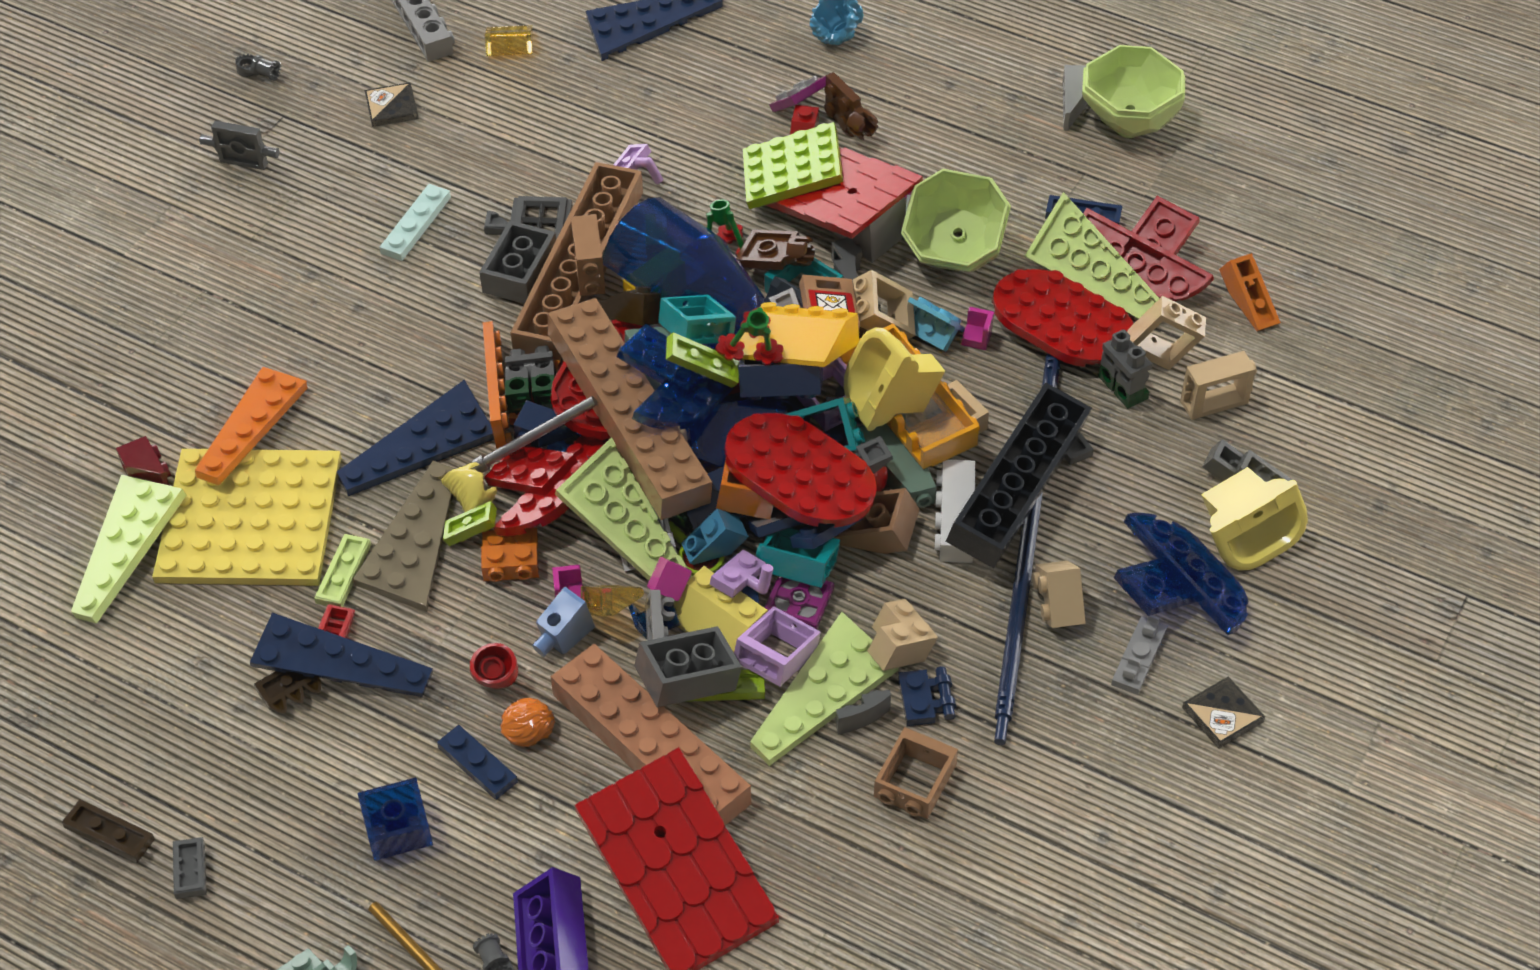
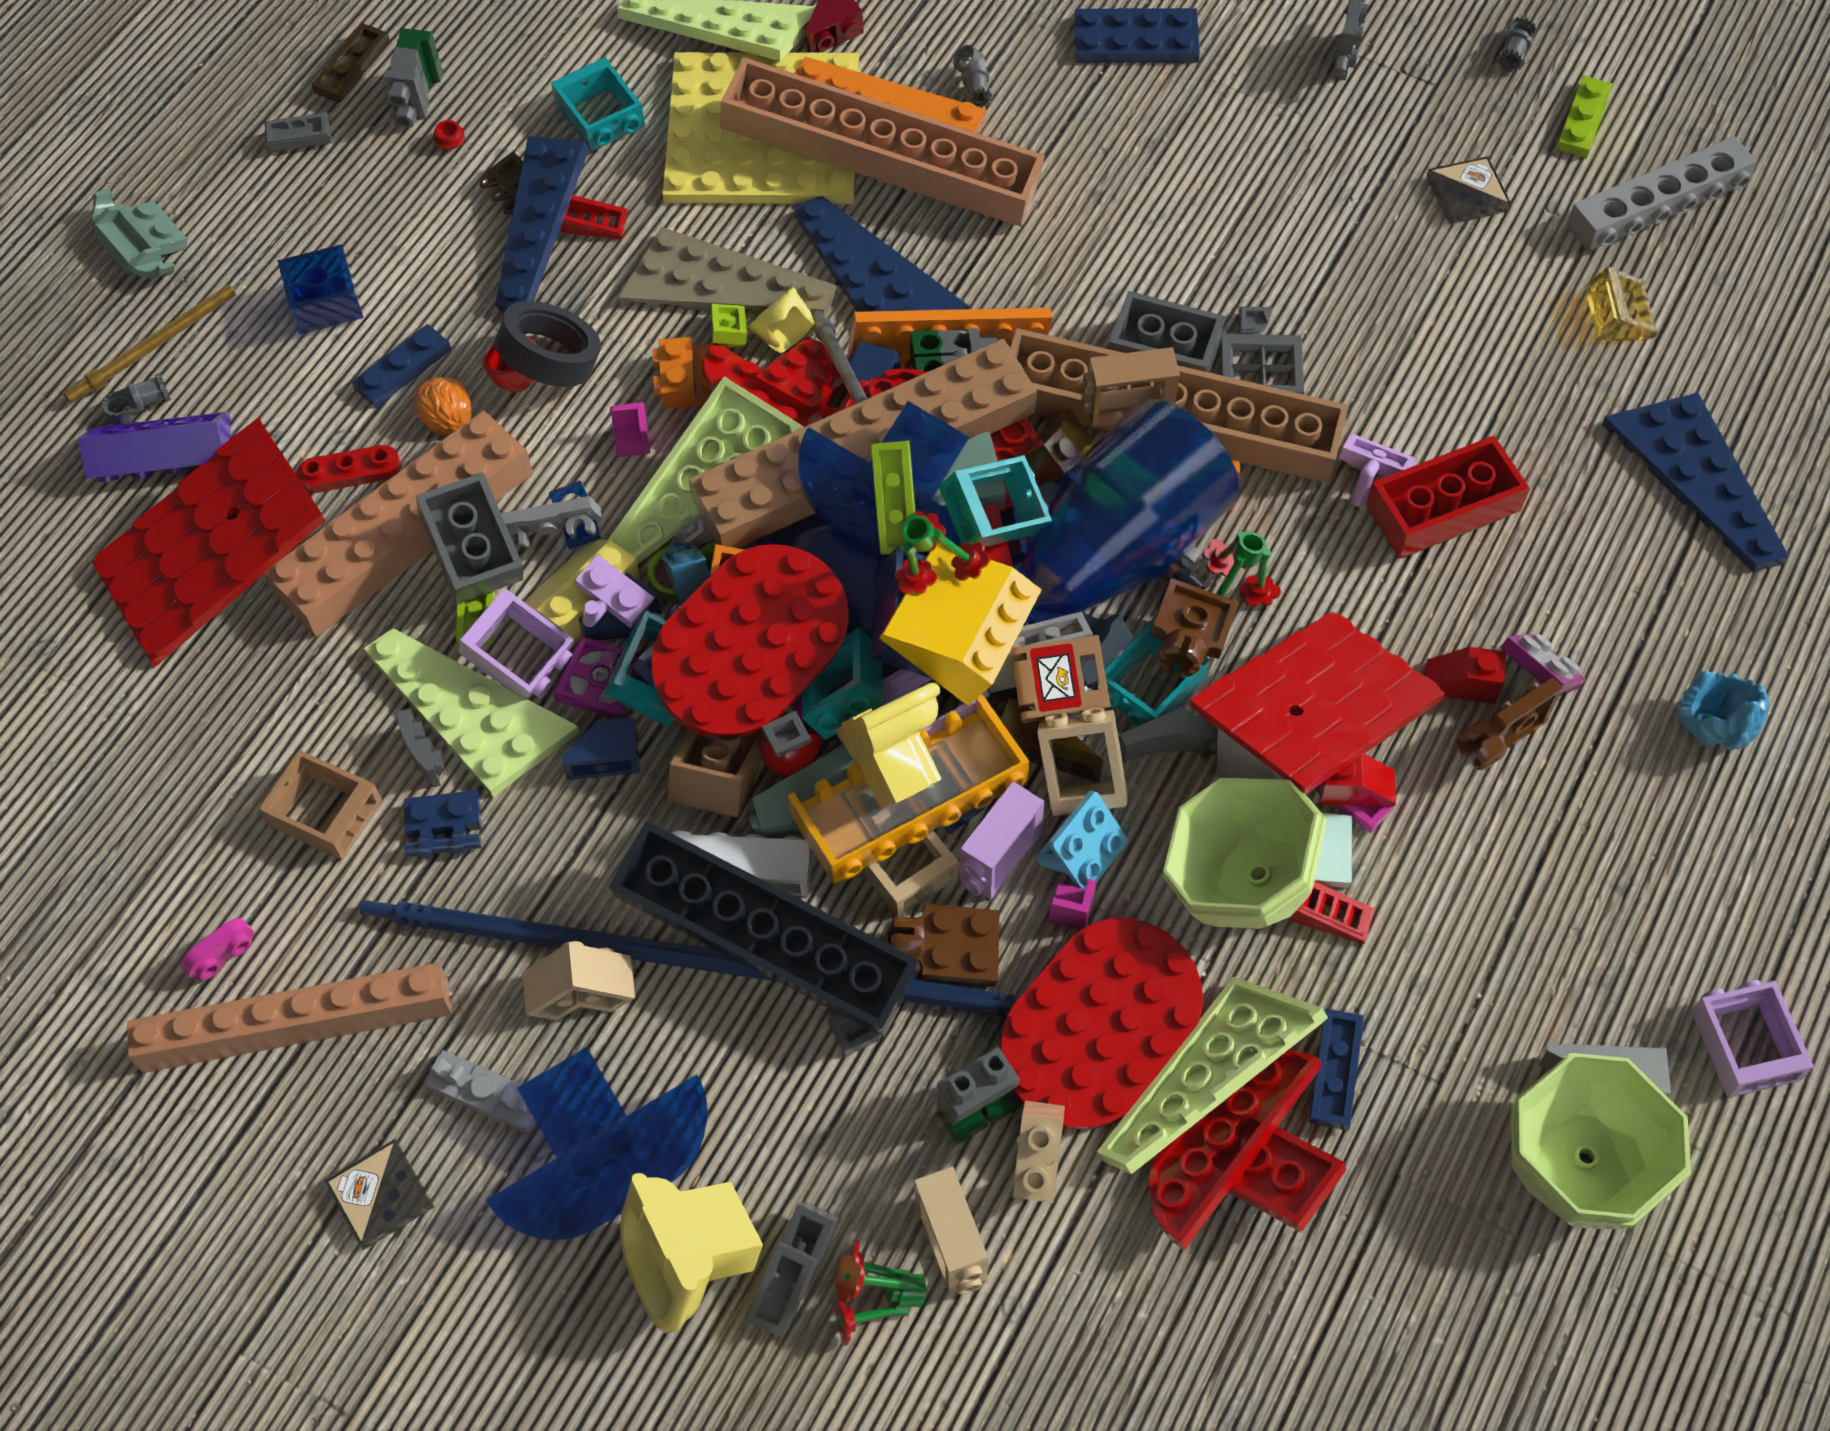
camera: 90 degrees right, 10 degrees up
(151, 766) = (411, 74): none -> dark grey hips
(198, 277) = (1137, 35): none -> dark blue plate
(198, 610) = (599, 78): none -> teal window
(216, 744) = (448, 135): none -> red plate
(228, 372) = (974, 75): none -> dark grey connector
(299, 421) = (881, 141): none -> nougat brick
(332, 41) = (1584, 116): none -> lime plate
(342, 569) = (689, 220): yellowish green tile -> none
(415, 222) = (1248, 236): light aqua plate -> none
(499, 616) = (537, 362): none -> black tyre
(563, 623) = (571, 426): medium blue torso -> none
(581, 777) = (364, 468): none -> red plate
(609, 599) = (612, 454): clear yellow tile -> none
(667, 127) = (1447, 496): none -> red brick
(669, 578) = (618, 522): dark pink panel -> none
(792, 165) = (1375, 650): lime plate -> none
(862, 588) = (604, 750): none -> dark blue slope
(901, 636) = (514, 793): tan brick -> none
(928, 336) = (1001, 841): none -> lavender window
(1009, 394) = (951, 943): none -> reddish brown plate
(1044, 831) = (207, 956): none -> dark pink plate
(1048, 23) = (1794, 1057): none -> lavender window
(1099, 776) = (288, 1018): none -> nougat brick
(1249, 291) = (1168, 1312): orange slope -> none
(1263, 418) = (901, 1288): none -> plant

